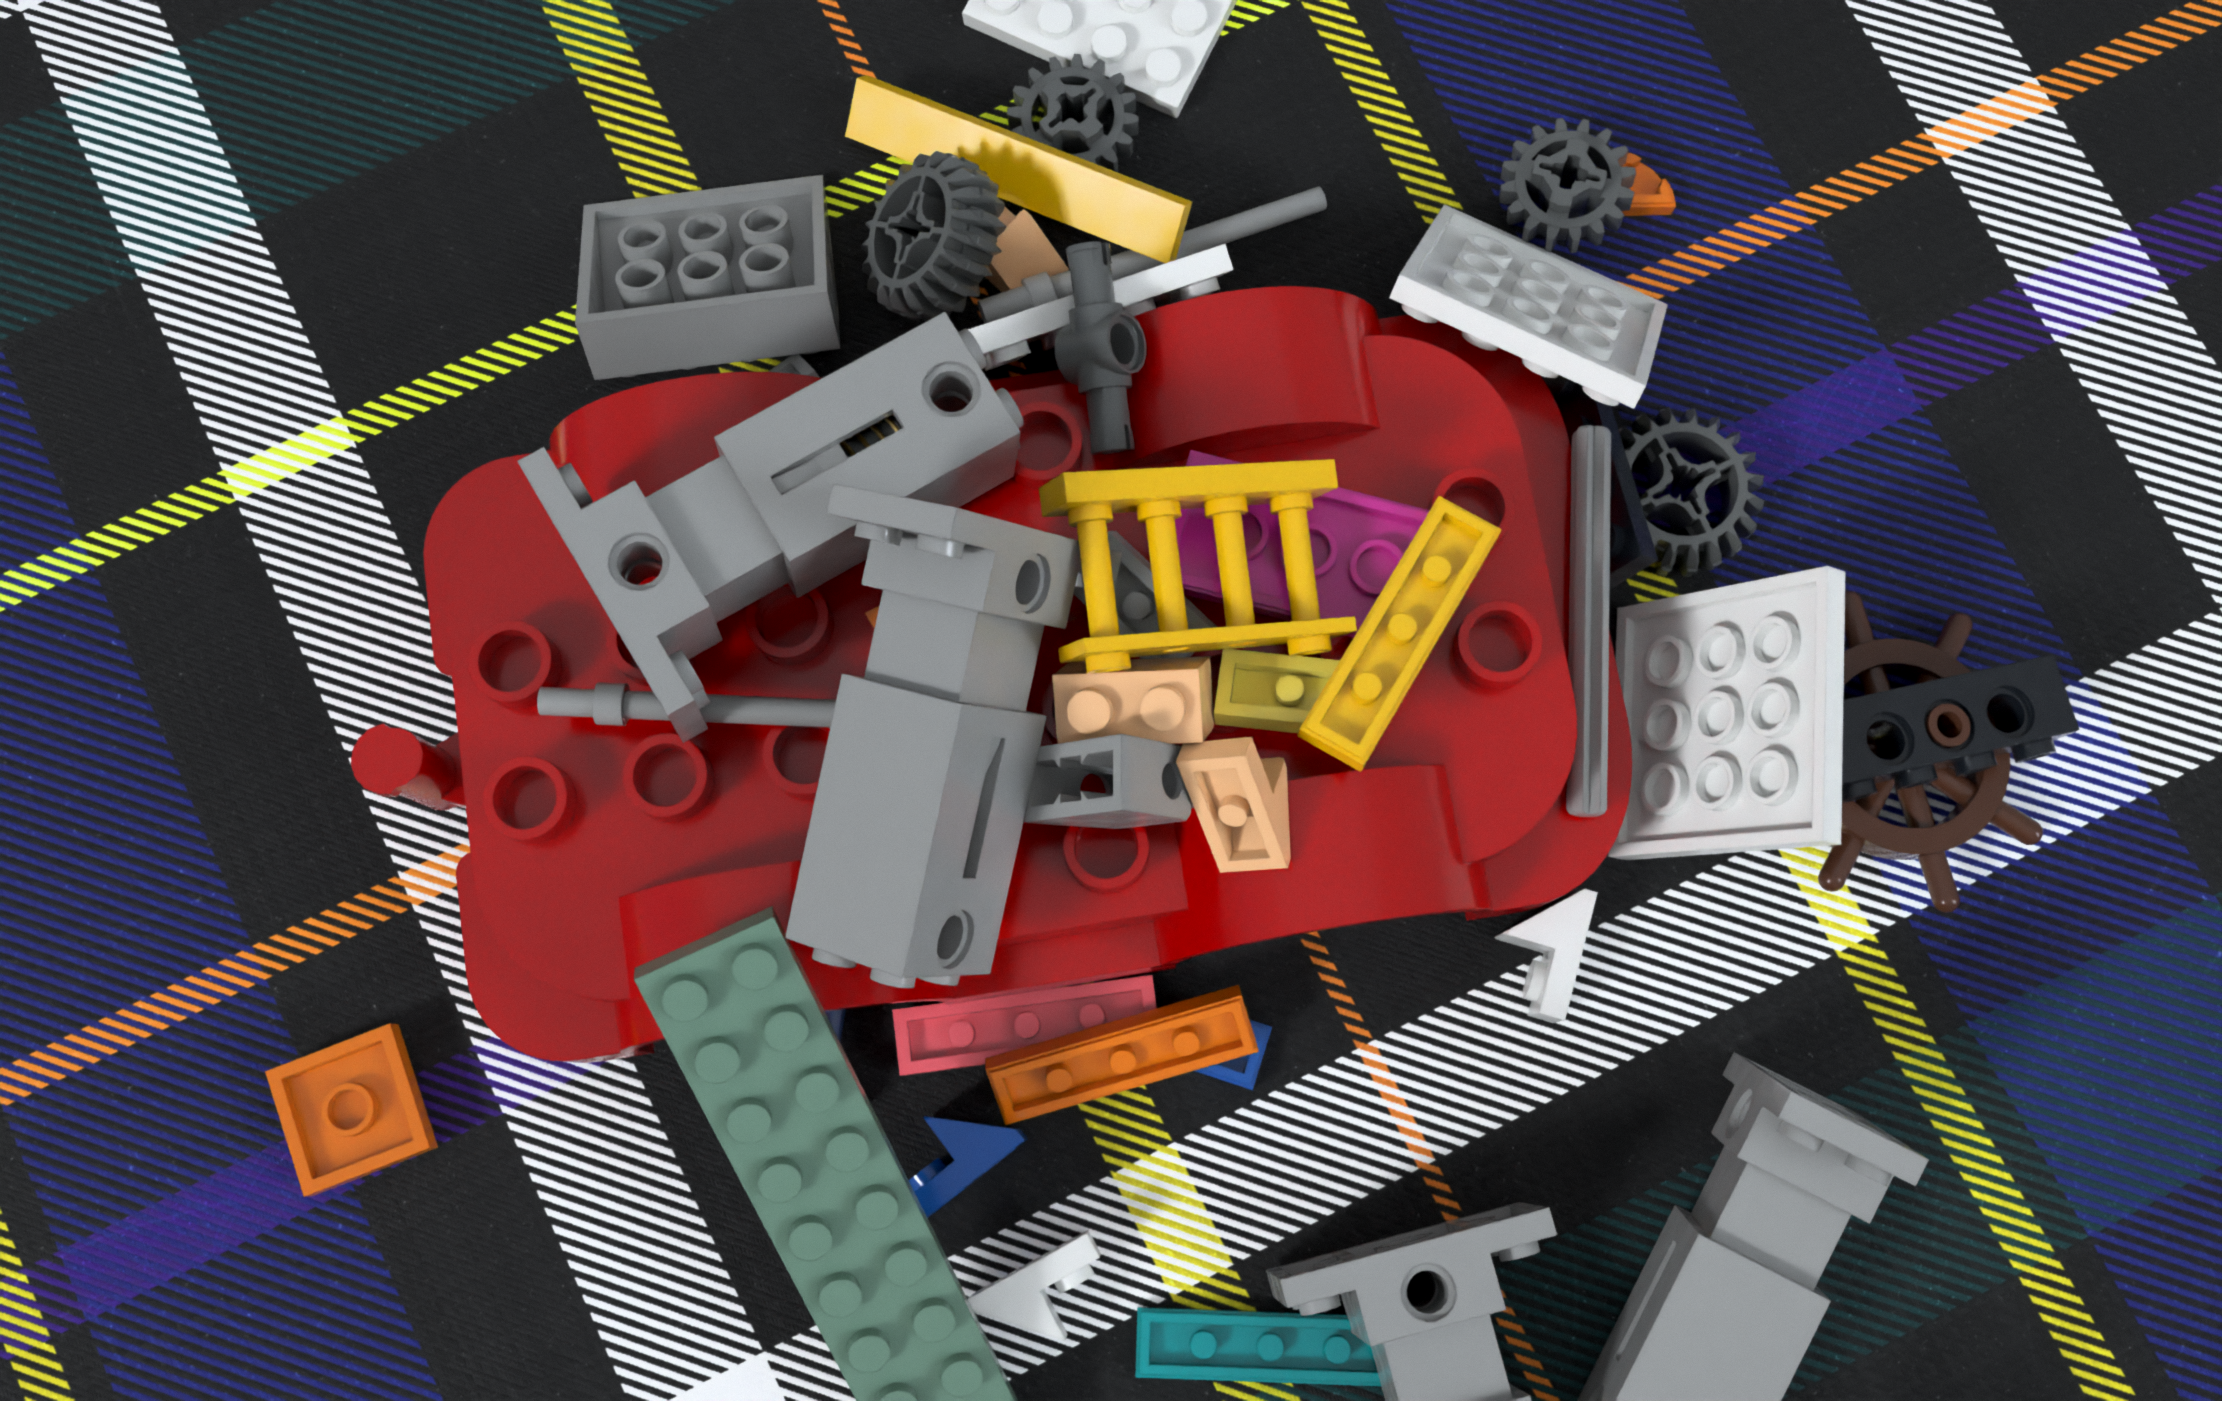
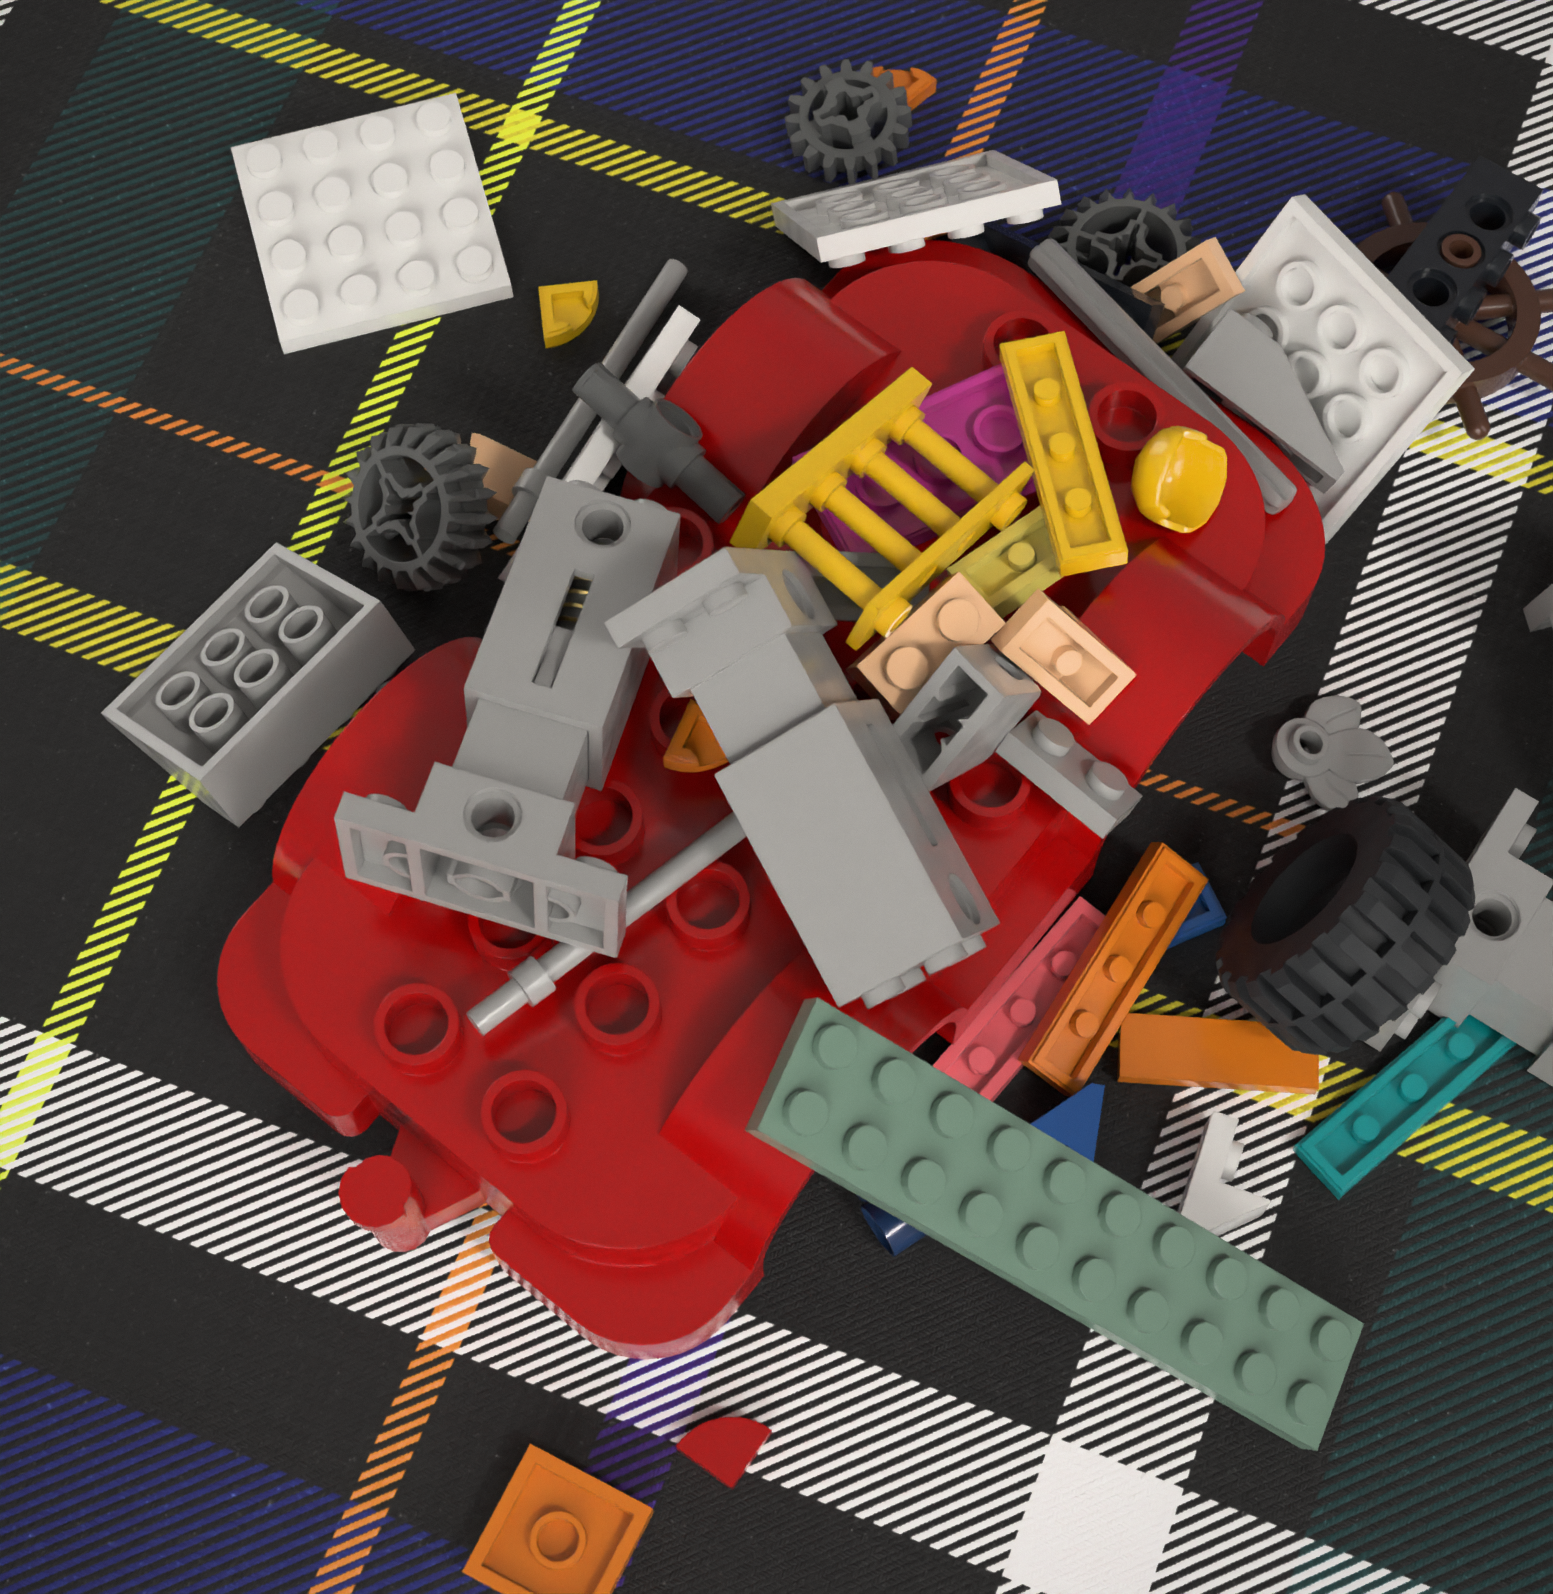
camera: 45 degrees left, 10 degrees down
(525, 1147) = (725, 1446): none -> red tile
(1024, 169) = (460, 402): yellow tile -> none
(1073, 97) = (423, 338): dark grey gear -> none
(1148, 1187) = (1211, 1055): none -> orange tile
(1170, 896) = (1069, 773): none -> light grey plate
(1204, 164) = (567, 310): none -> yellow tile
(1306, 1196) = (1346, 926): none -> black tyre
(1468, 1040) = (1338, 749): none -> light grey plate
(1489, 731) = (1179, 478): none -> yellow hair
(1560, 936) = (1341, 630): white slope -> none
(1662, 692) = (1256, 381): none -> light grey slope
(1692, 563) = (1191, 287): none -> light nougat slope

